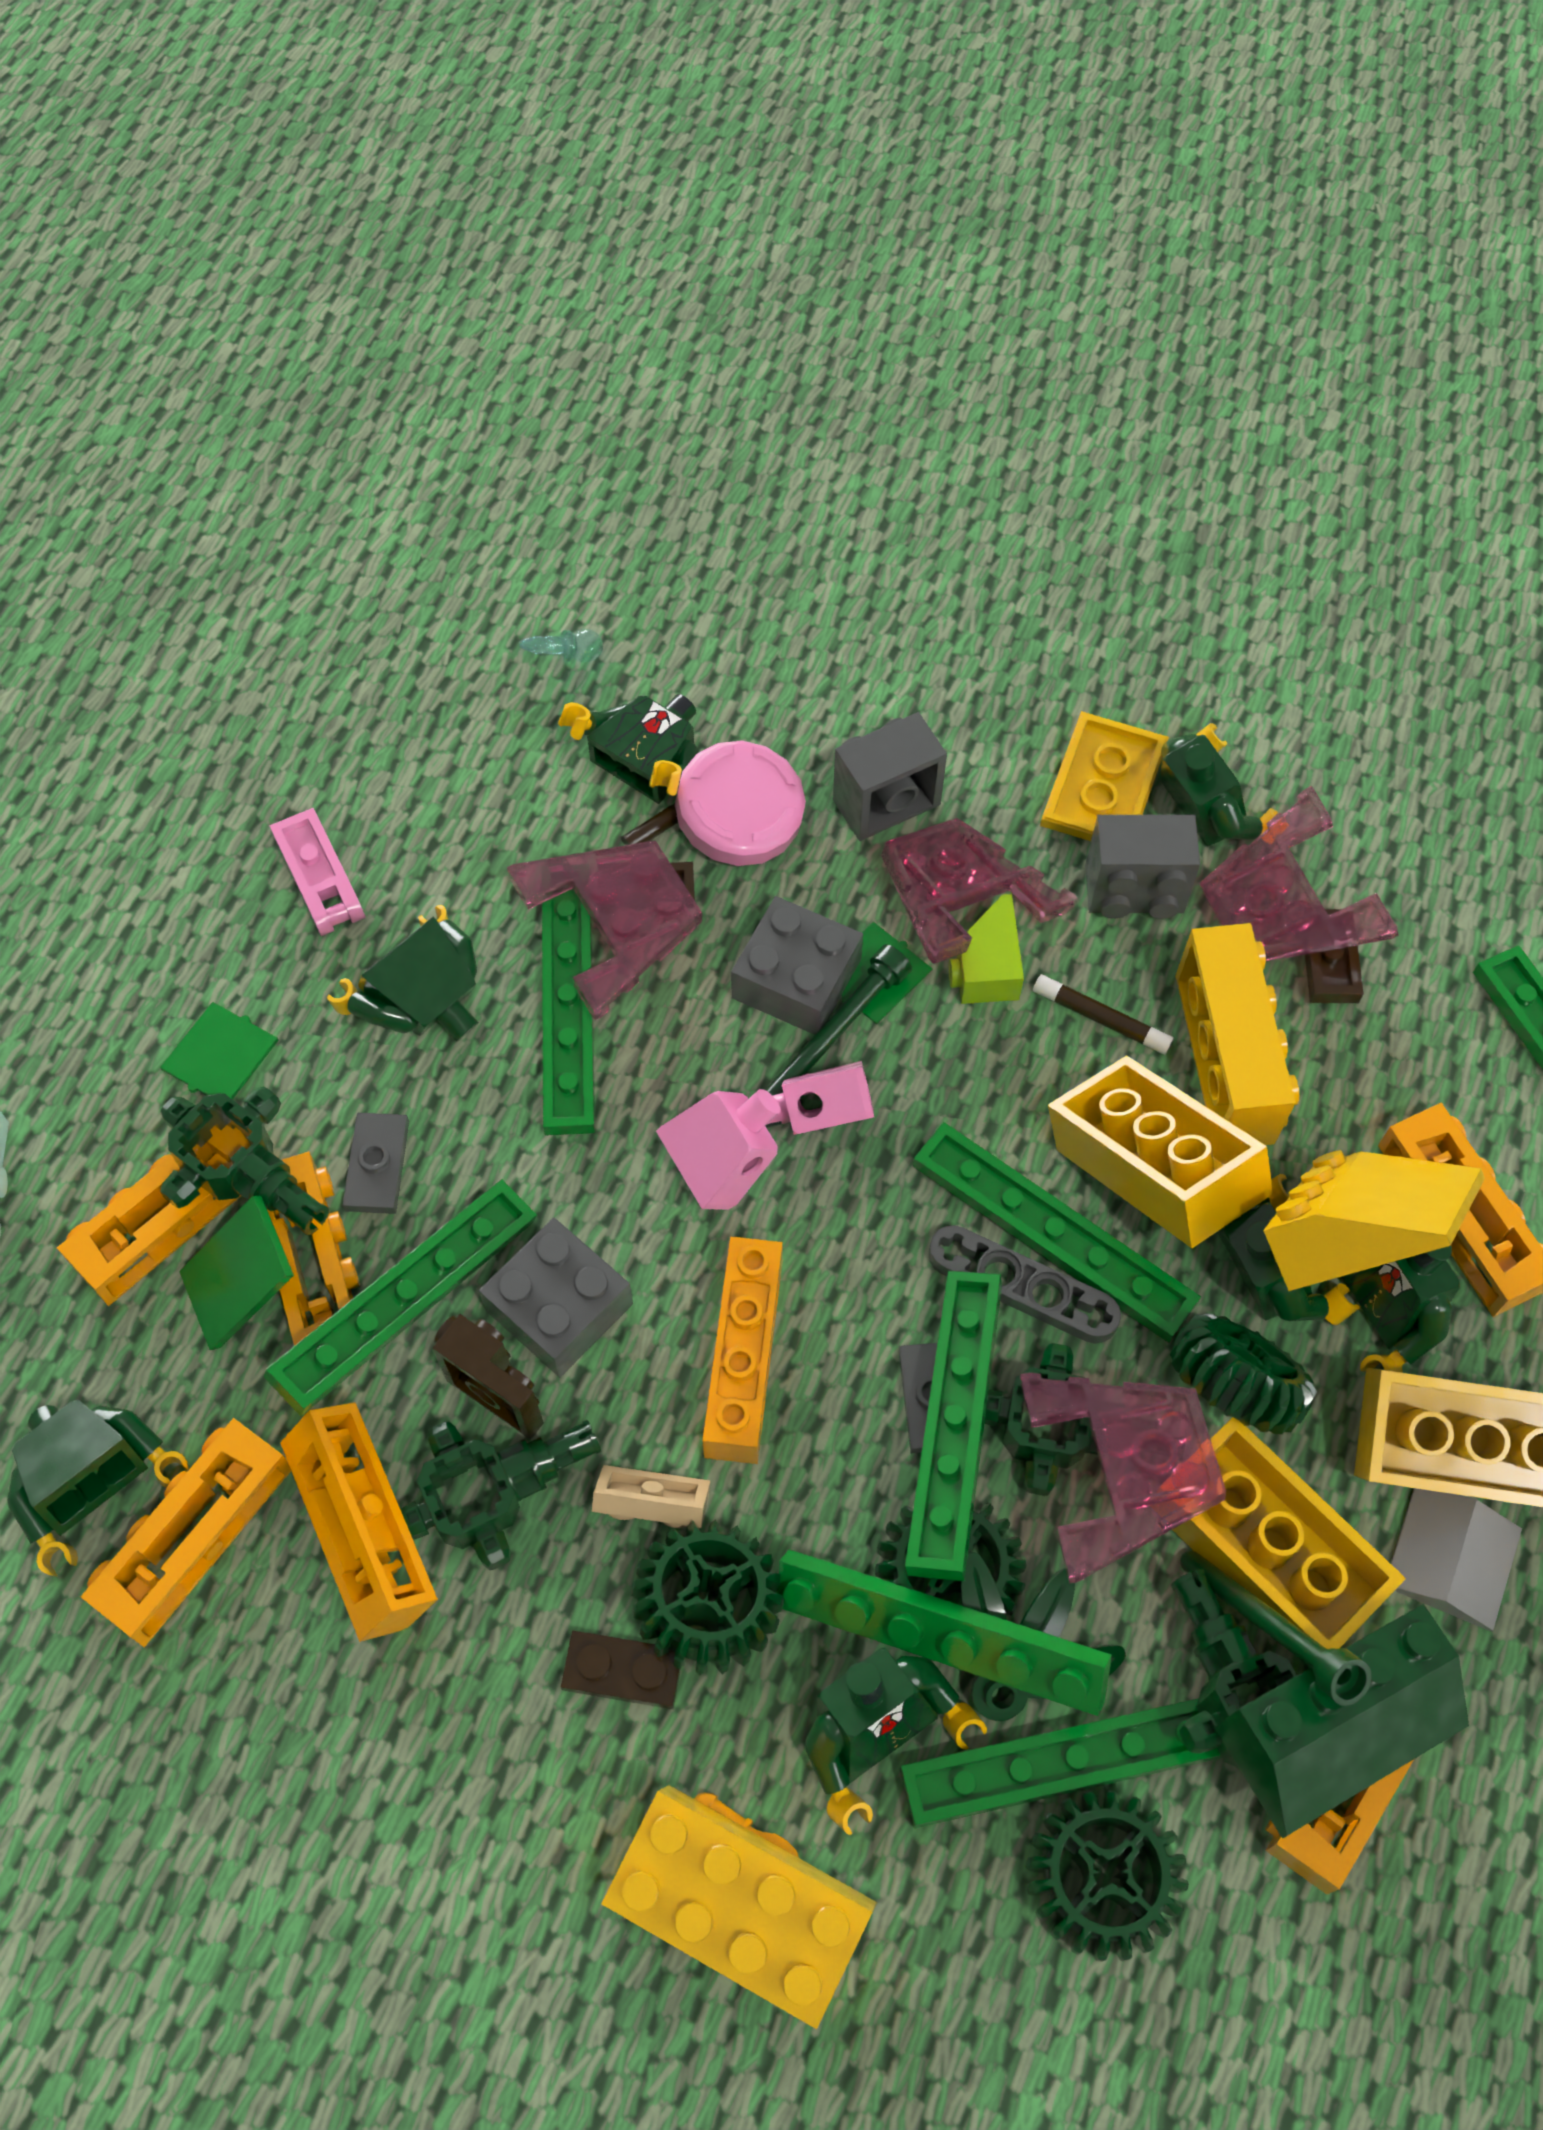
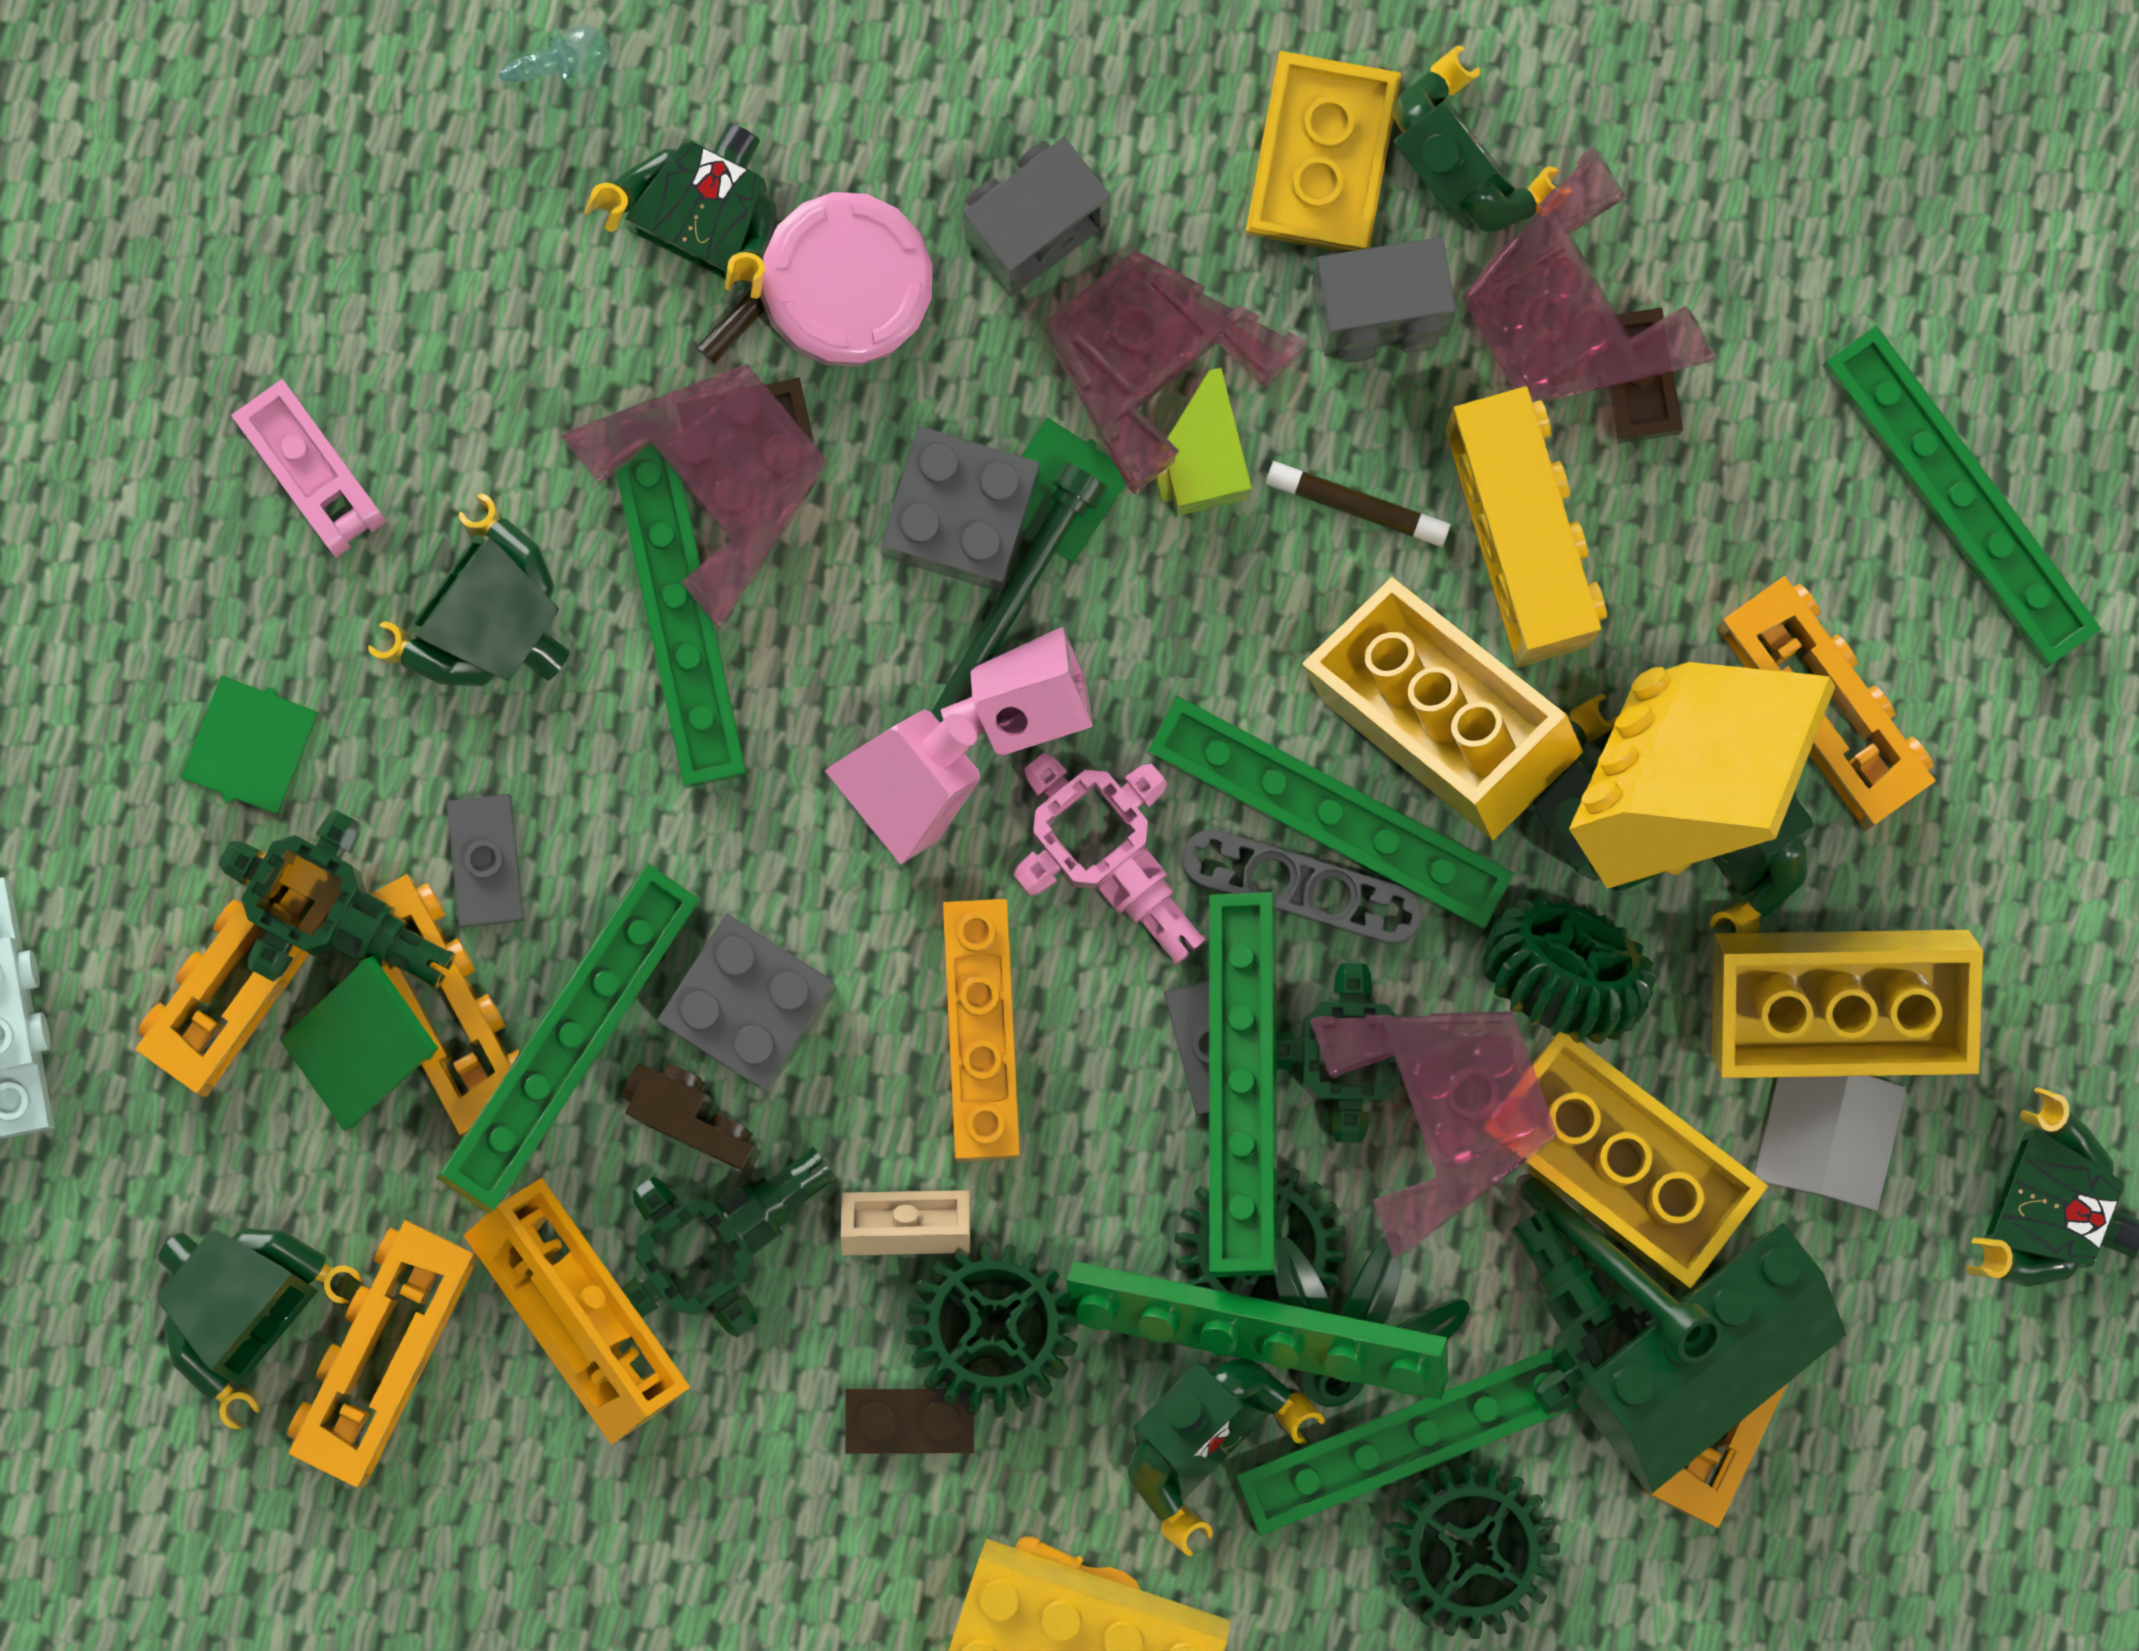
camera: 10 degrees left, 20 degrees up
(883, 1247) = (1127, 876): none -> bright pink piece

